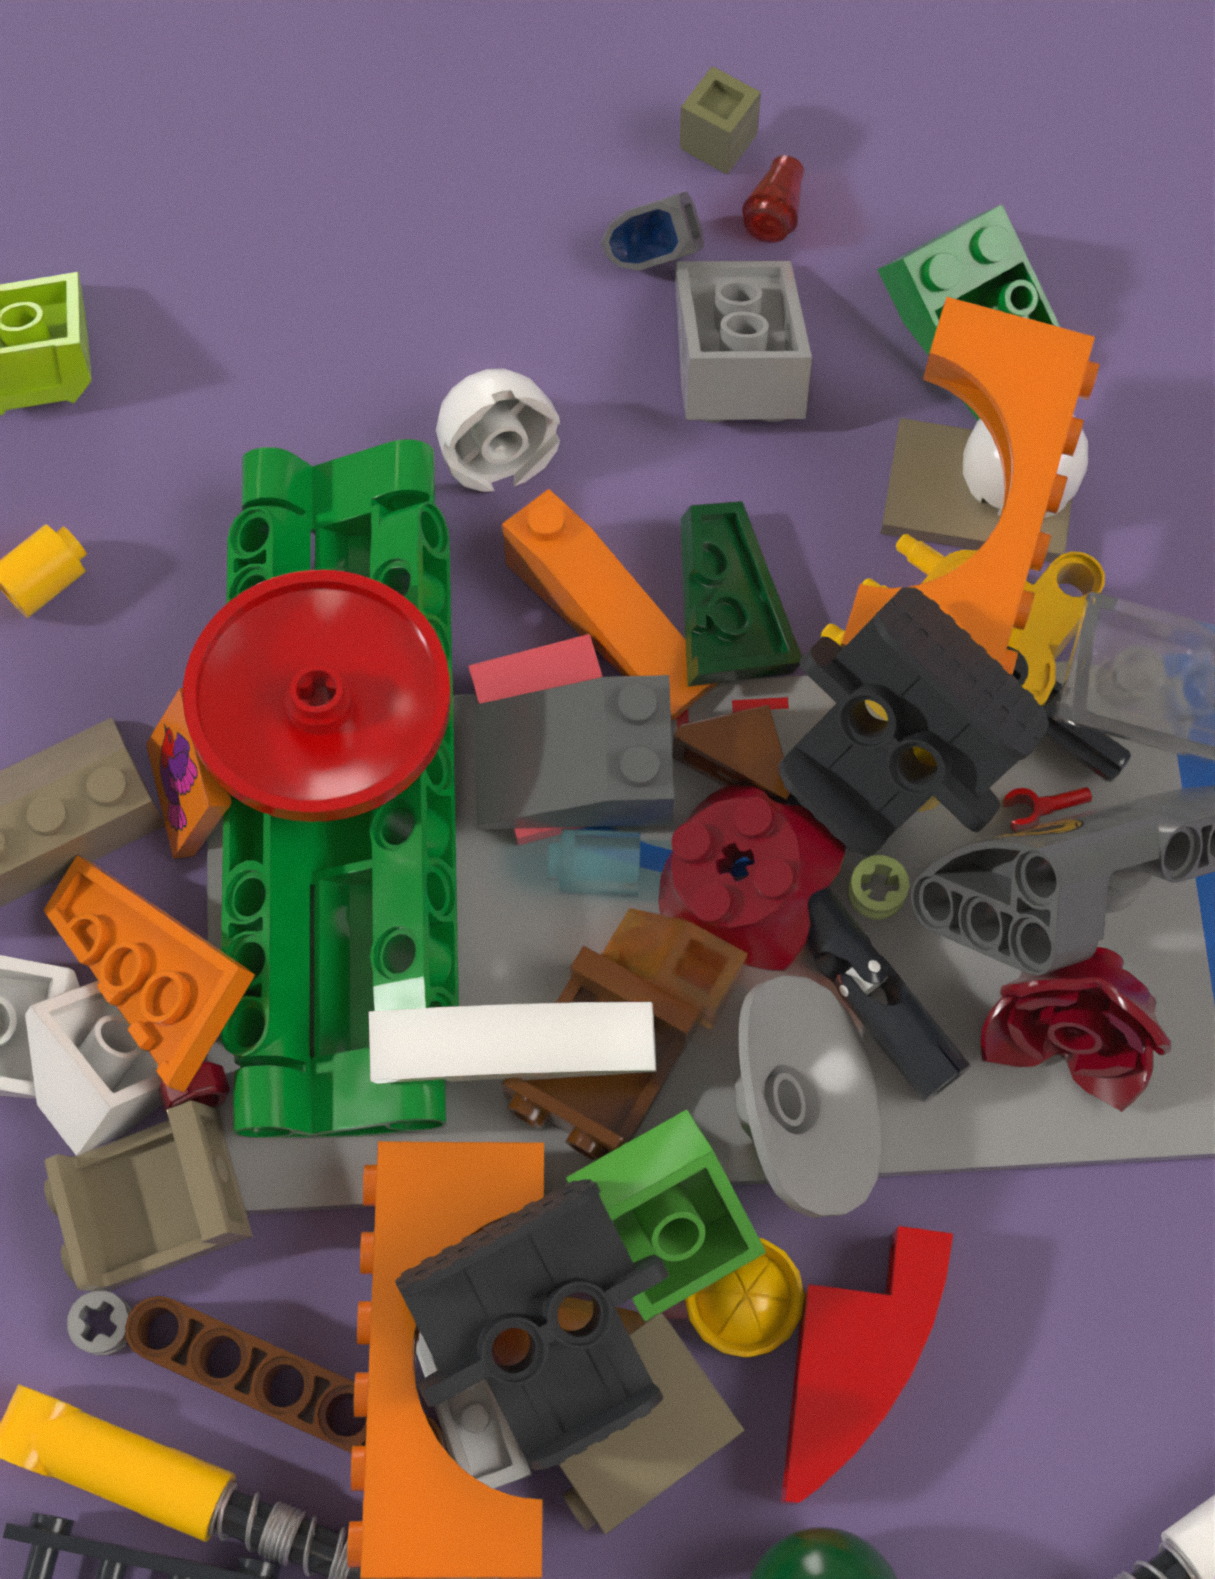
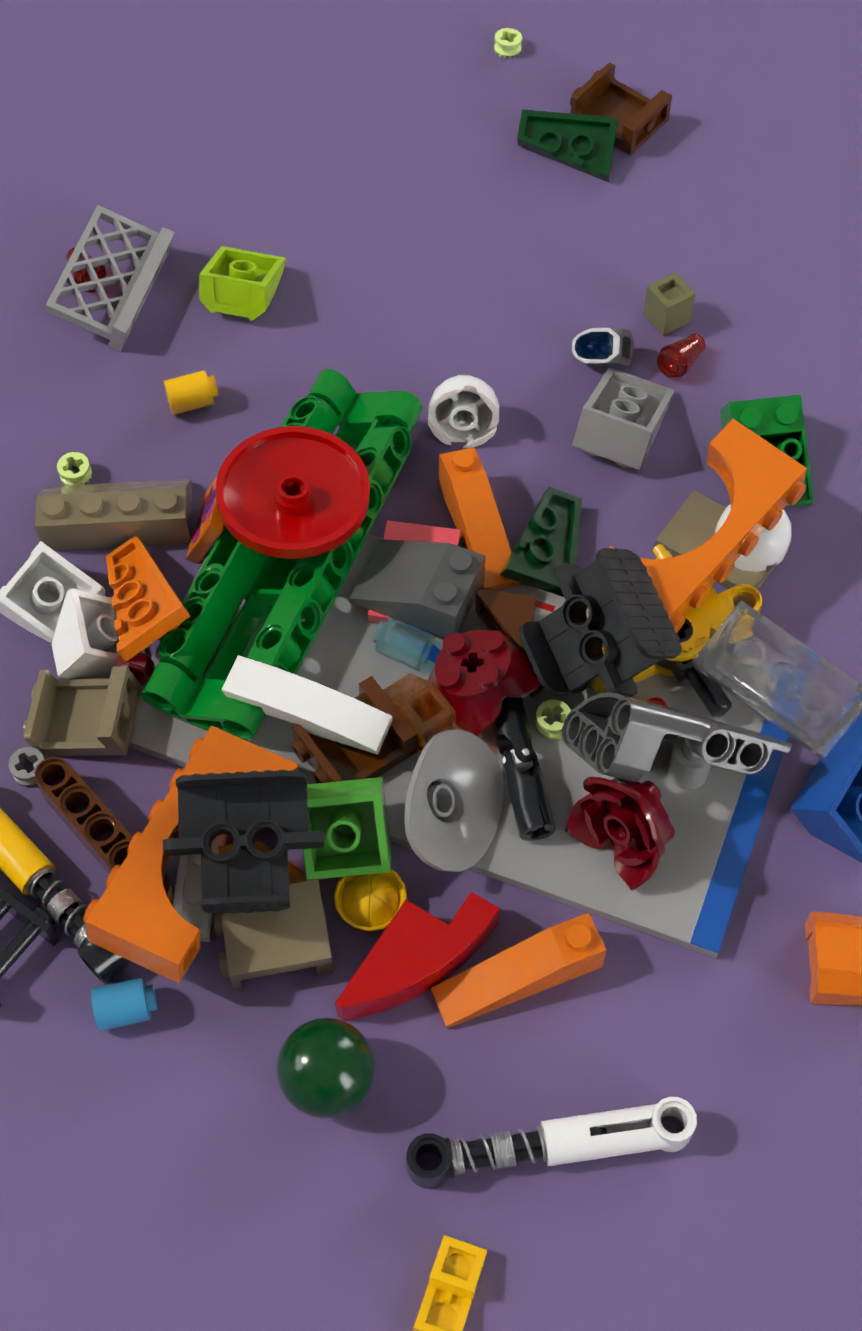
camera: 25 degrees right, 10 degrees down
(1019, 1312) = (522, 970): none -> orange slope

